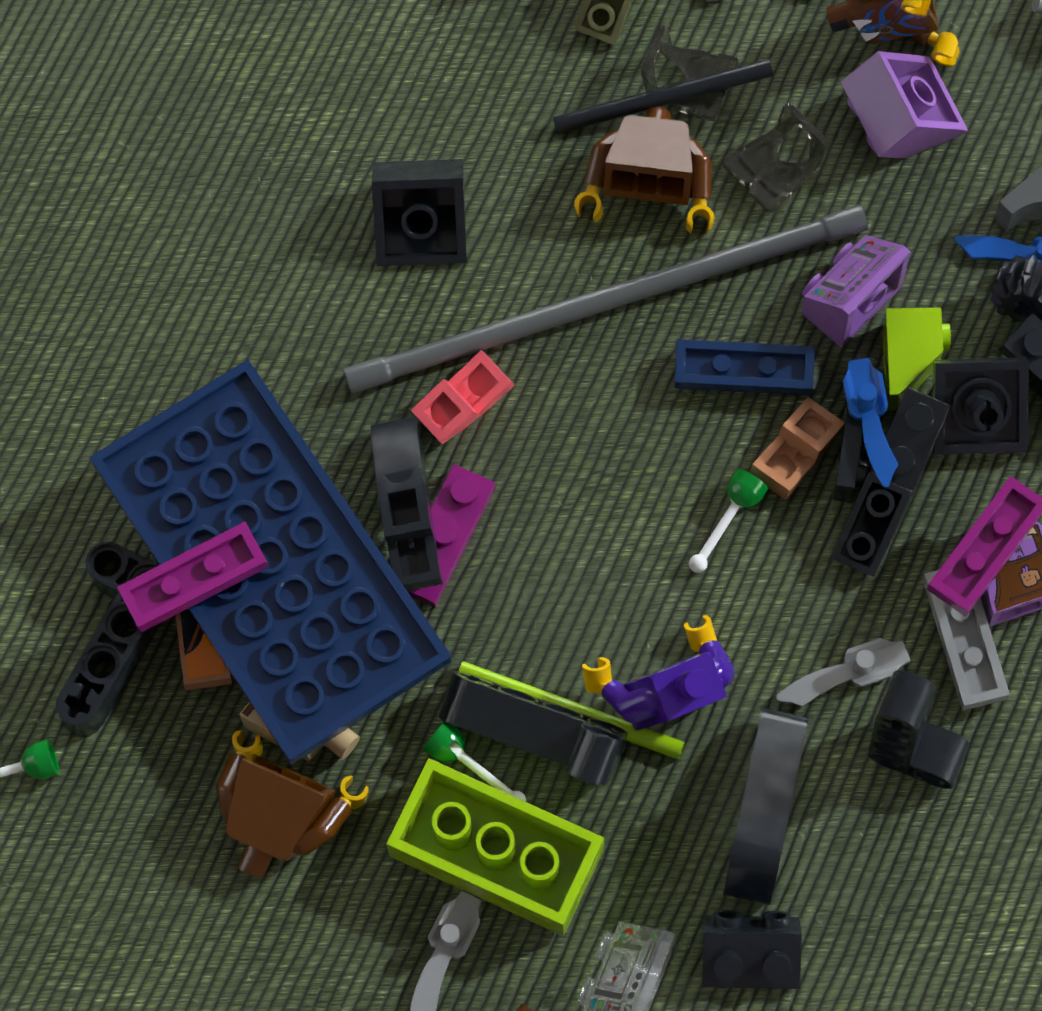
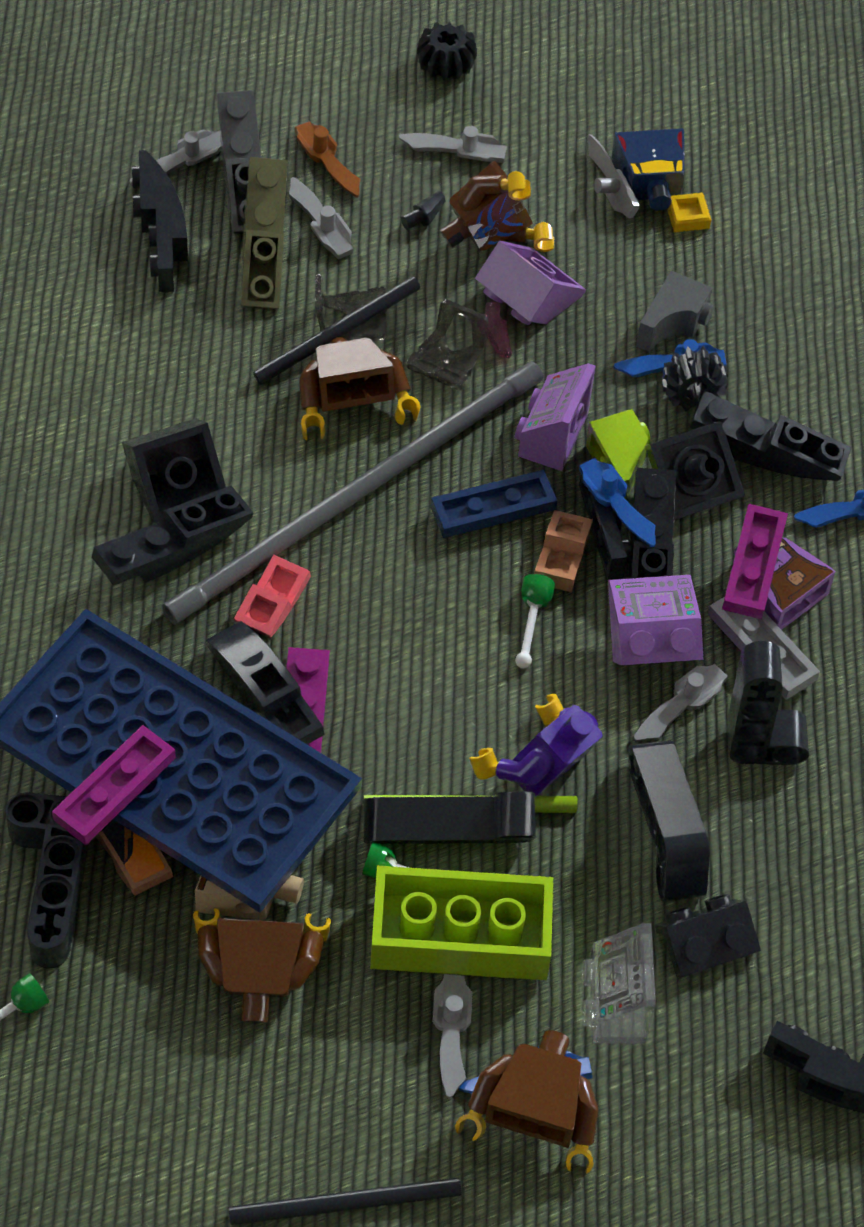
camera: 30 degrees left, 15 degrees down
(384, 297) = (176, 540): none -> black slope
(842, 149) = (497, 330): none -> clear pink bar
(850, 575) = (654, 620): none -> medium lavender slope

